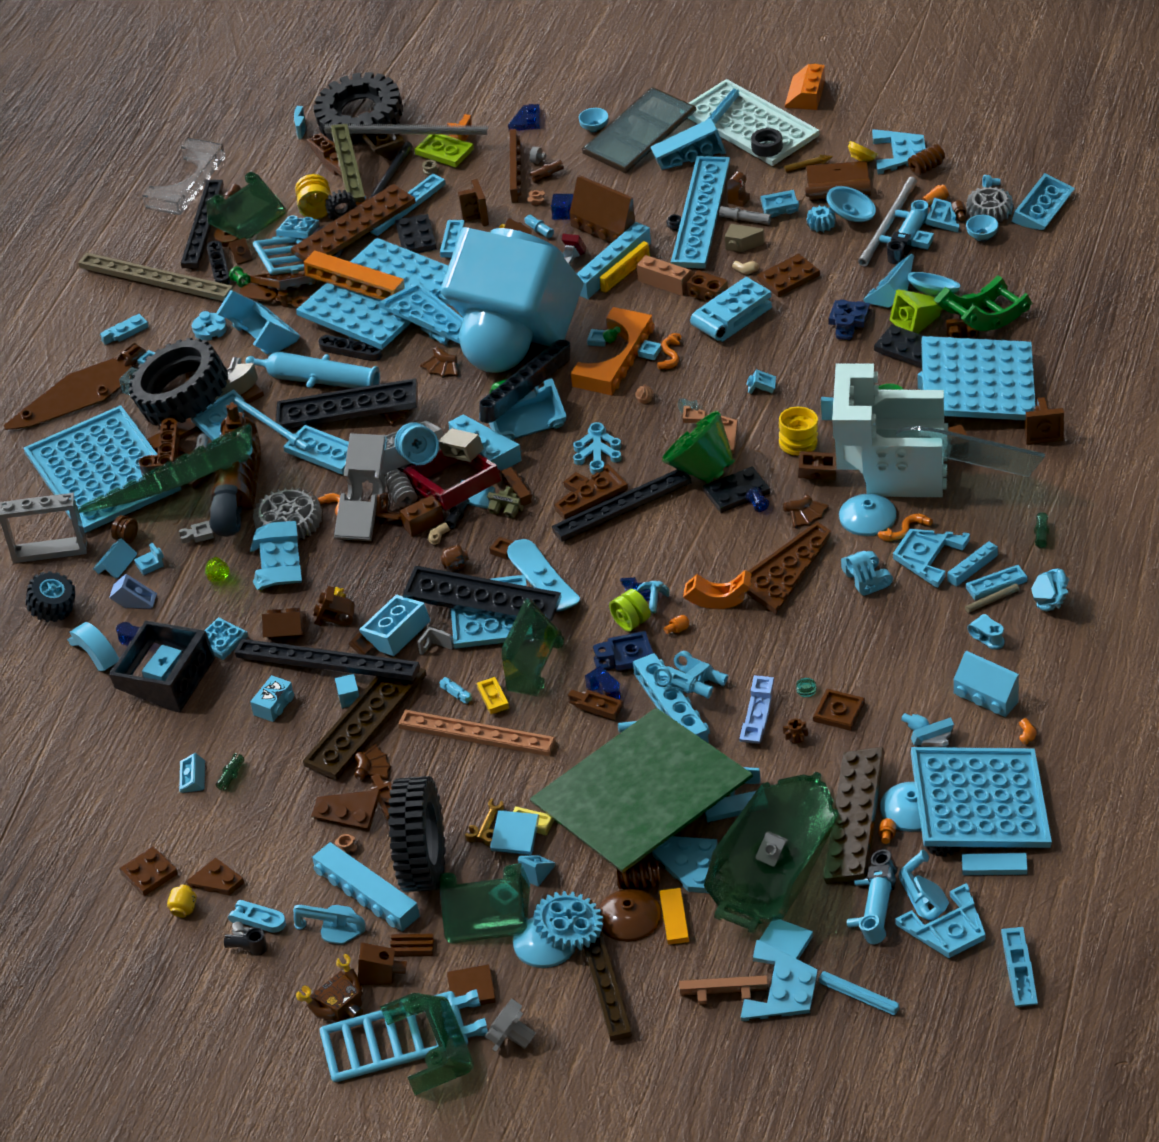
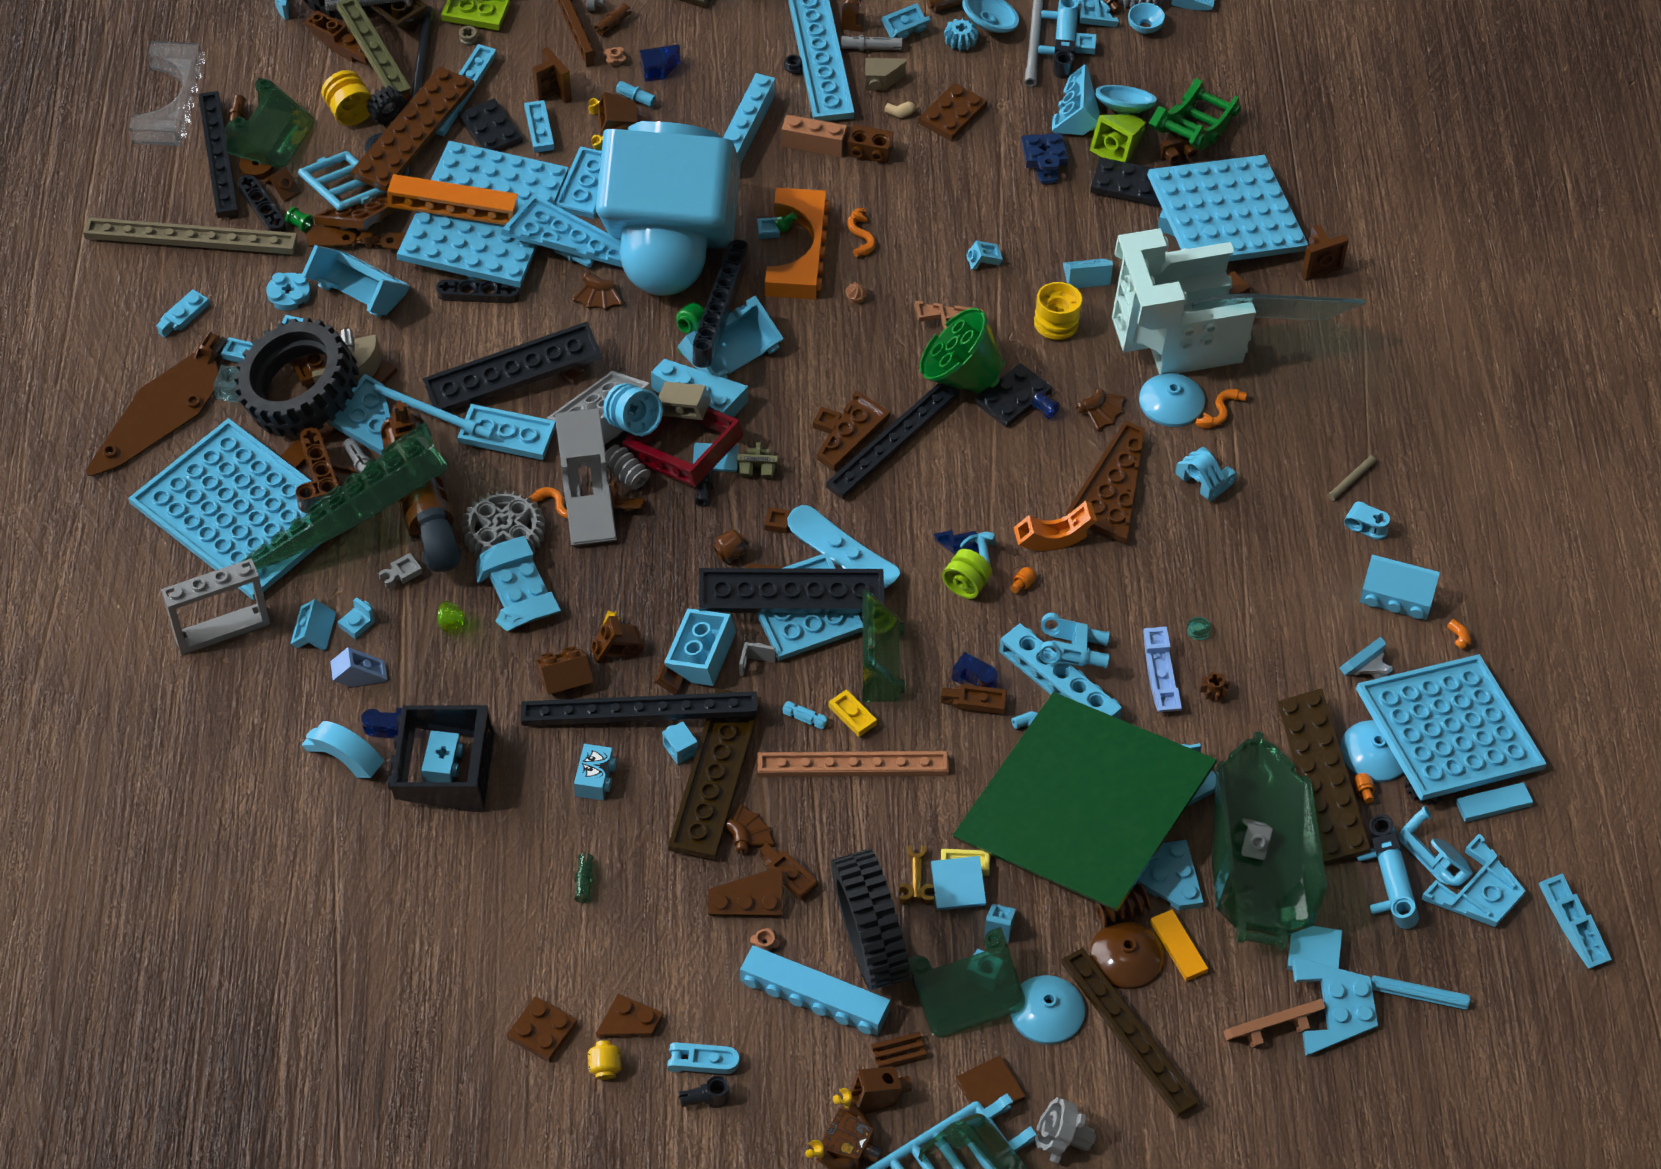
camera: 25 degrees left, 10 degrees up
(50, 596) = (260, 694): black wheel -> none
(124, 528) = (310, 584): reddish brown wheel -> none
(192, 774) = (536, 890): medium azure slope -> none
(224, 637) = (500, 701): medium azure tile -> none
(238, 928) = (688, 1081): light grey hand -> none
(297, 227) = (341, 141): medium azure tile -> none
(317, 371) = (455, 330): medium azure piece -> none
(339, 922) = (803, 1045): medium azure piece -> none
(421, 515) = (667, 497): reddish brown brick -> none
(436, 533) = (691, 516): tan arm -> none
(512, 480) = (755, 433): reddish brown piece -> none
(568, 920) = (1074, 983): medium azure gear -> none
(573, 247) = (693, 113): dark red piece -> none
(596, 433) = (823, 351): medium azure plant -> none
(601, 210) = (711, 66): reddish brown slope -> none
(617, 653) = (970, 627): dark blue plate -> none
(623, 267) = (762, 132): yellow tile -> none
(649, 350) = (837, 234): medium azure plate -> none
(681, 402) = (908, 298): clear light blue piece -> none
(732, 309) = (912, 167): medium azure hinge -> none
(817, 465) = (1097, 350): reddish brown brick -> none
(838, 709) = (1246, 649): reddish brown tile -> none
(915, 721) = (1339, 648): medium azure cylinder -> none
(920, 549) = (1251, 432): medium azure wing -> none
(972, 564) = (1314, 440): medium azure piece -> none
(995, 582) = (1347, 457): medium azure tile -> none
(1041, 530) = (1370, 384): clear green pin -> none
(1050, 589) = (1419, 458): medium azure helmet -> none

